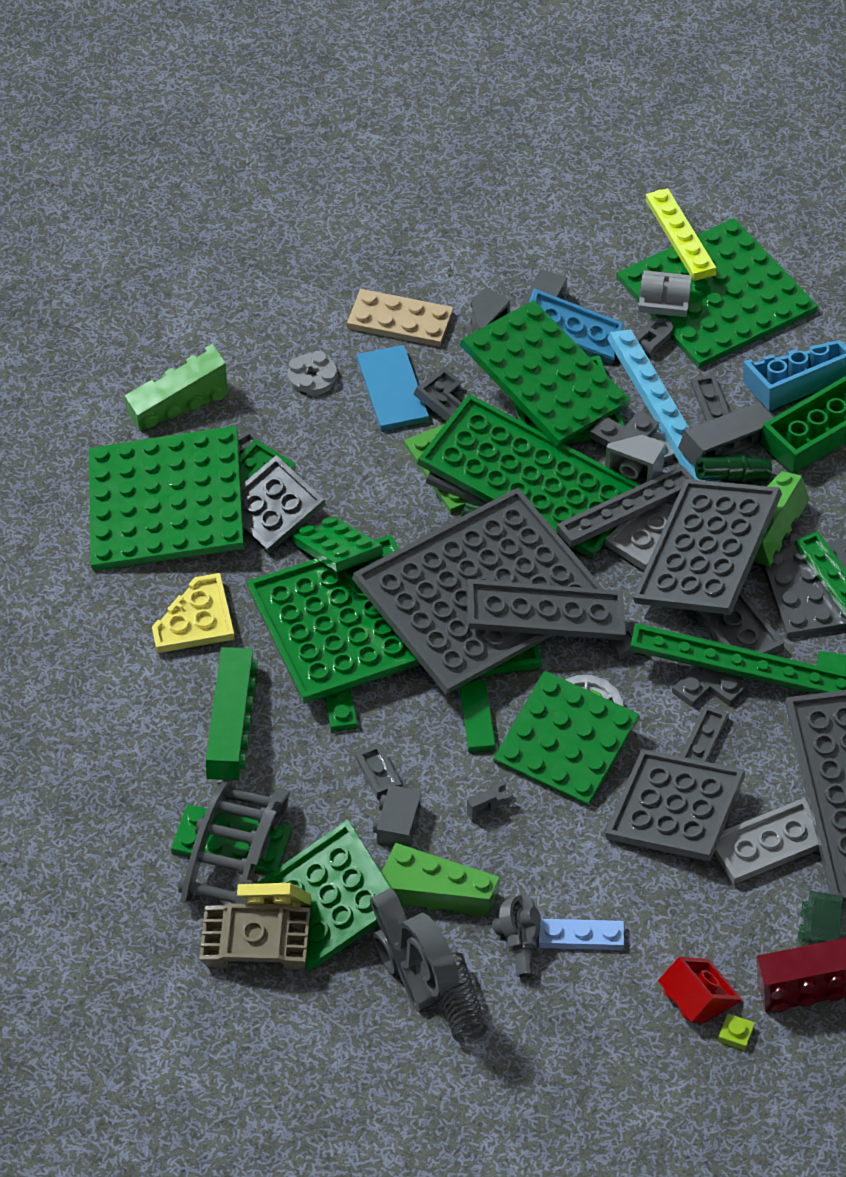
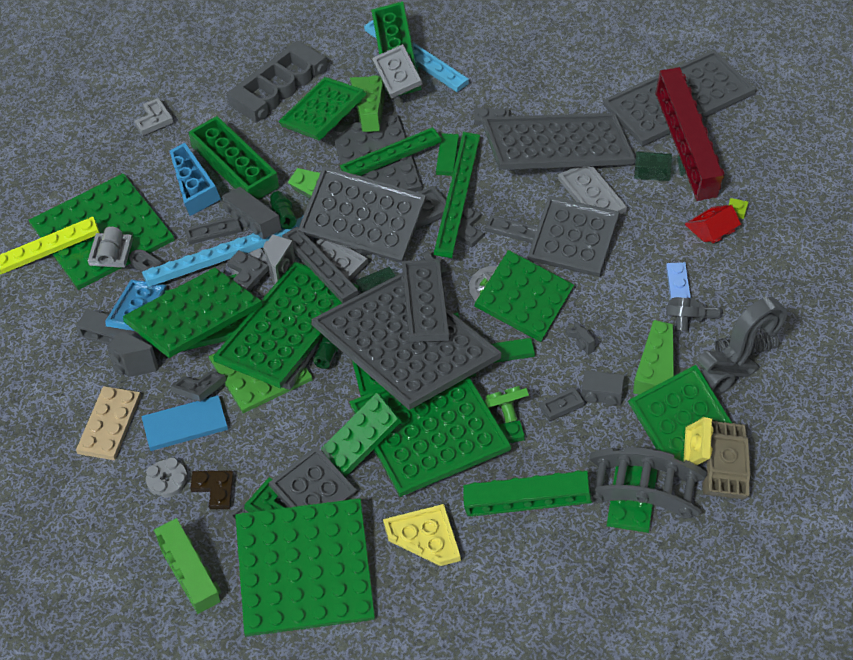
camera: 90 degrees left, 0 degrees up
(297, 423) = (217, 483): none -> dark brown plate
(382, 701) = (506, 400): none -> bright green plate
(606, 573) = (374, 279): none -> clear green plate

